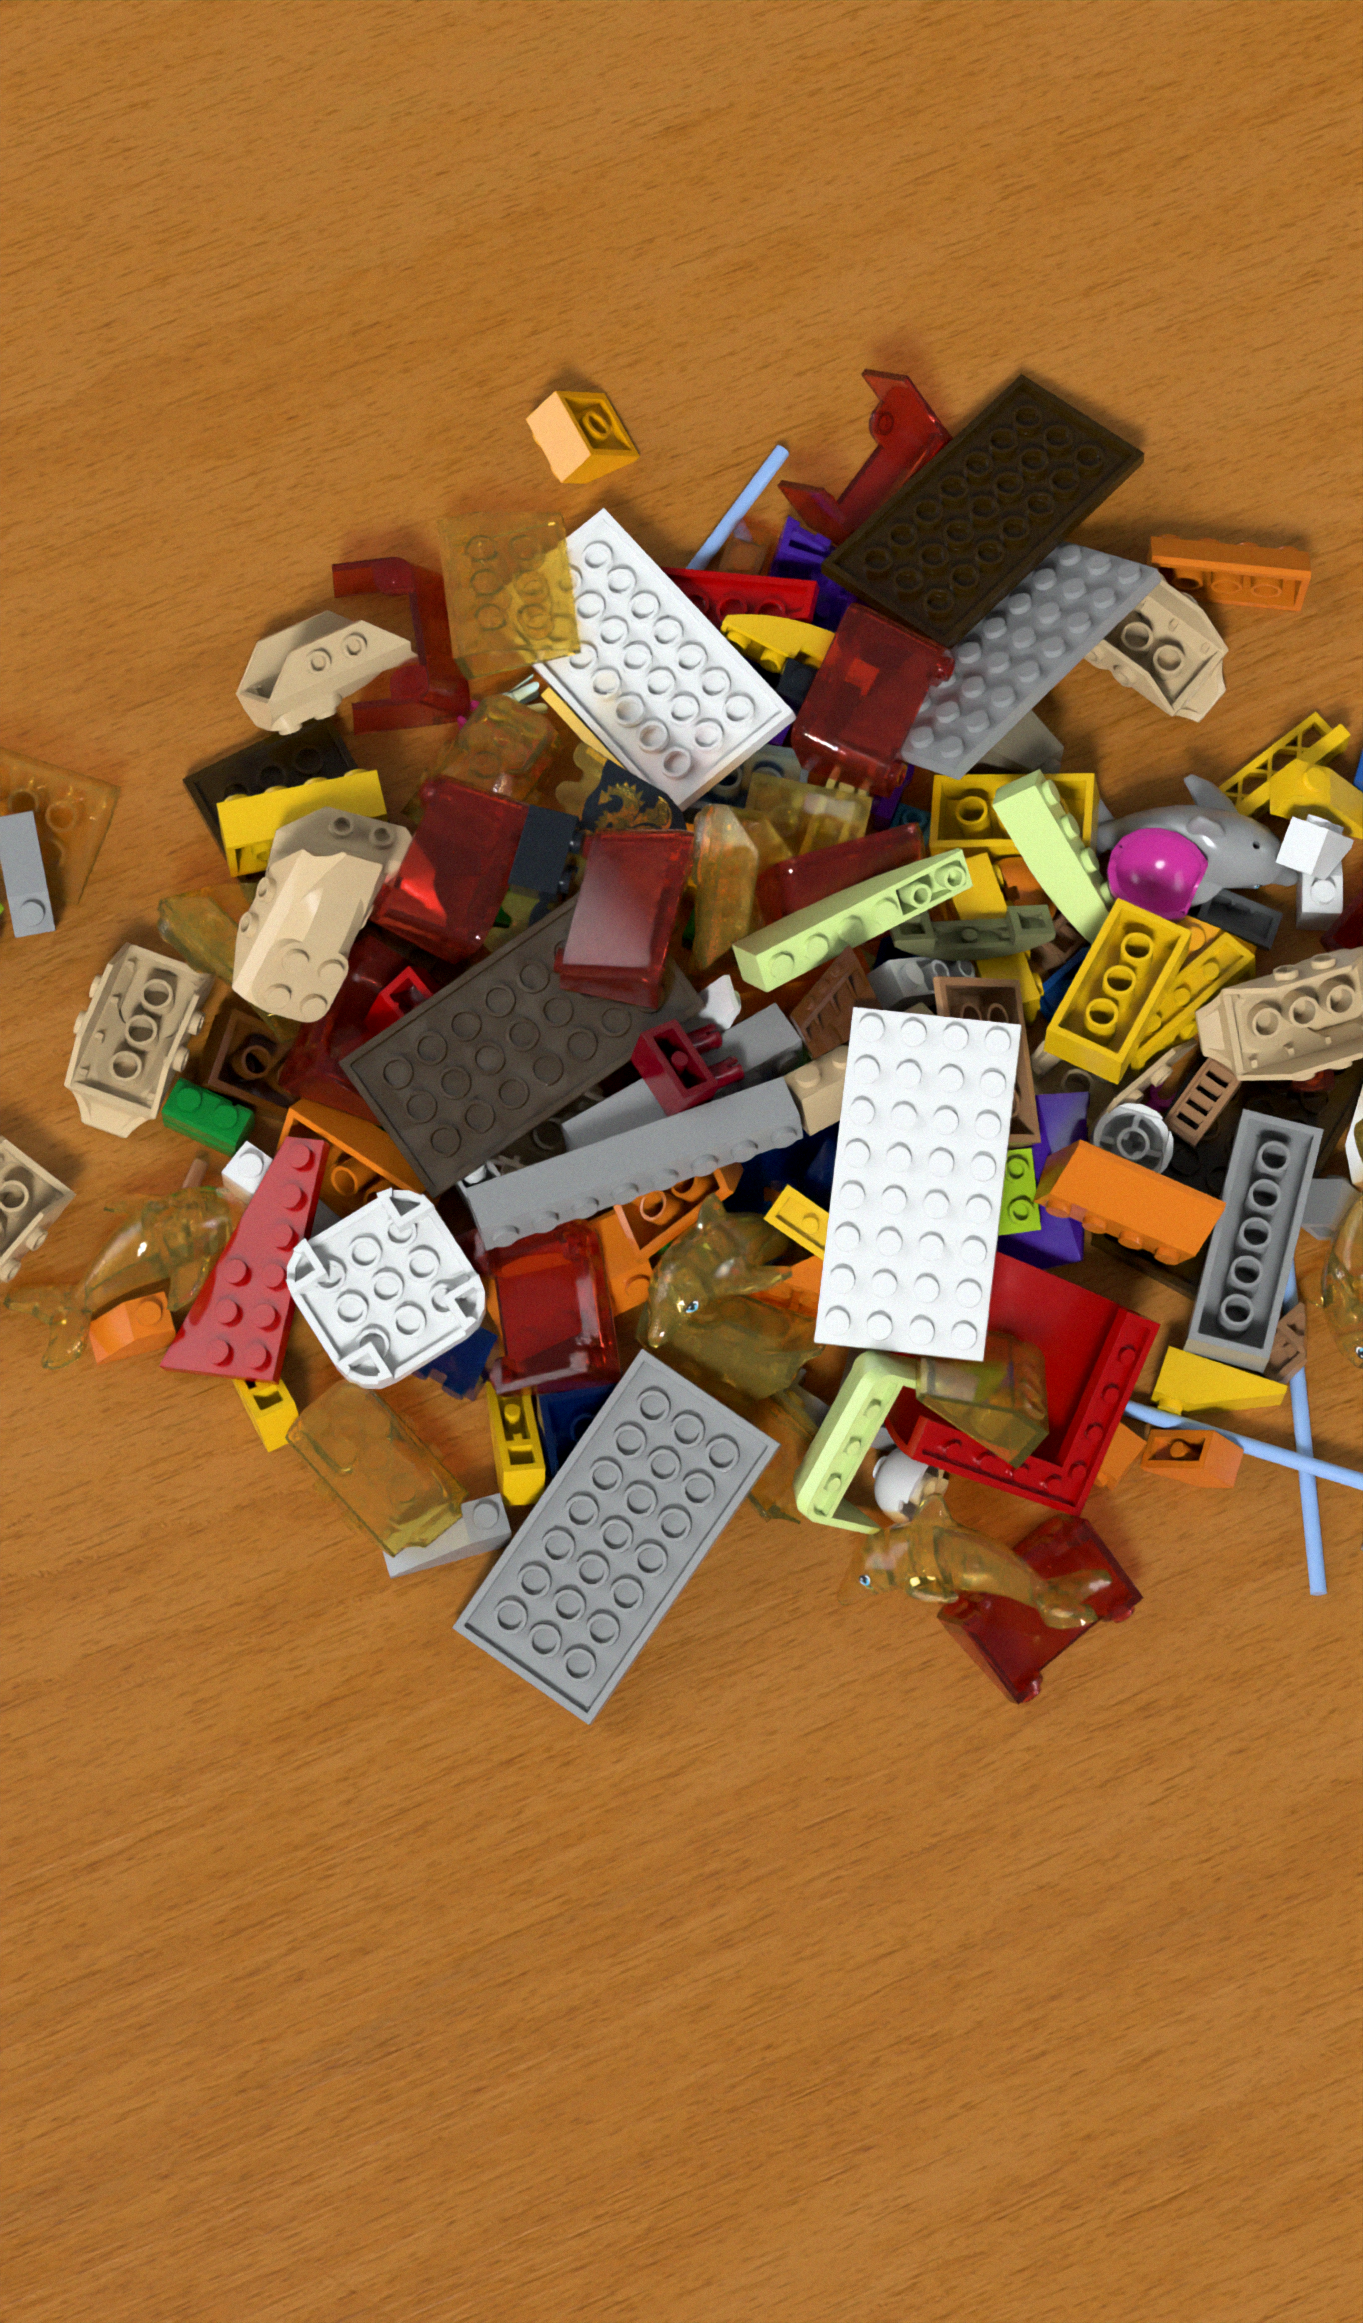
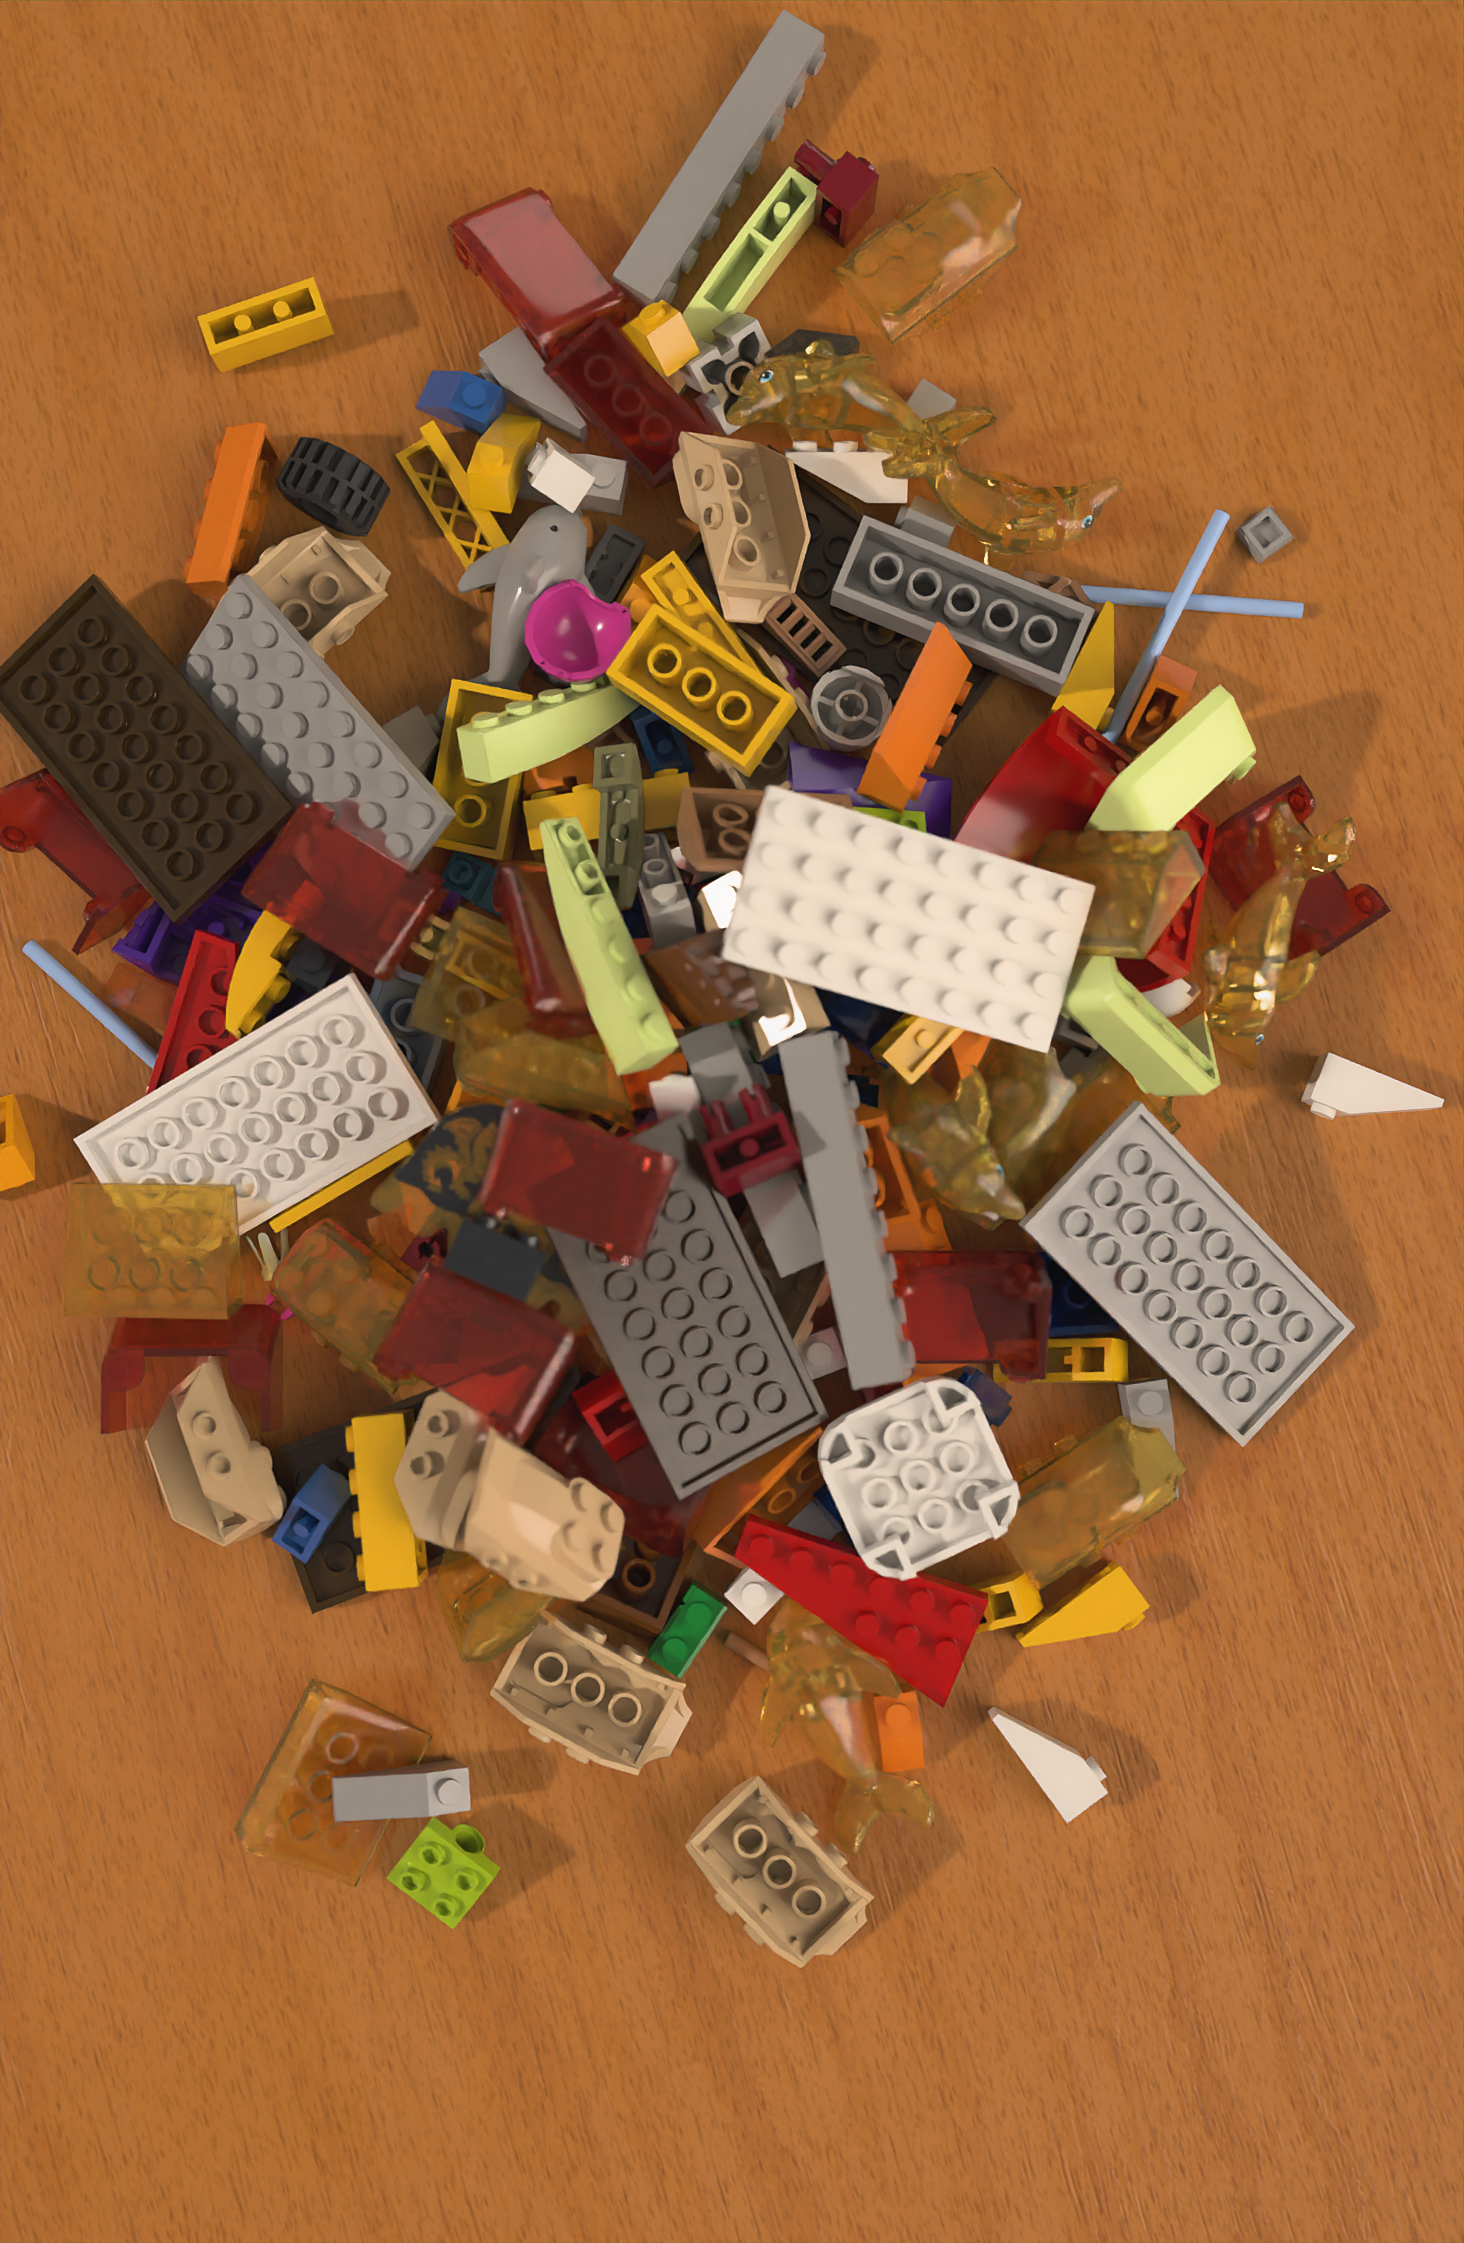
camera: 80 degrees left, 15 degrees up
(109, 1485) = (1058, 1768): none -> white slope
(277, 760) = (313, 1513): none -> blue slope
(278, 1507) = (1093, 1608): none -> yellow slope
(828, 1697) = (1351, 1090): none -> white slope
(1122, 1452) = (1179, 768): none -> yellowish green windscreen
(1266, 651) = (333, 486): none -> black tyre

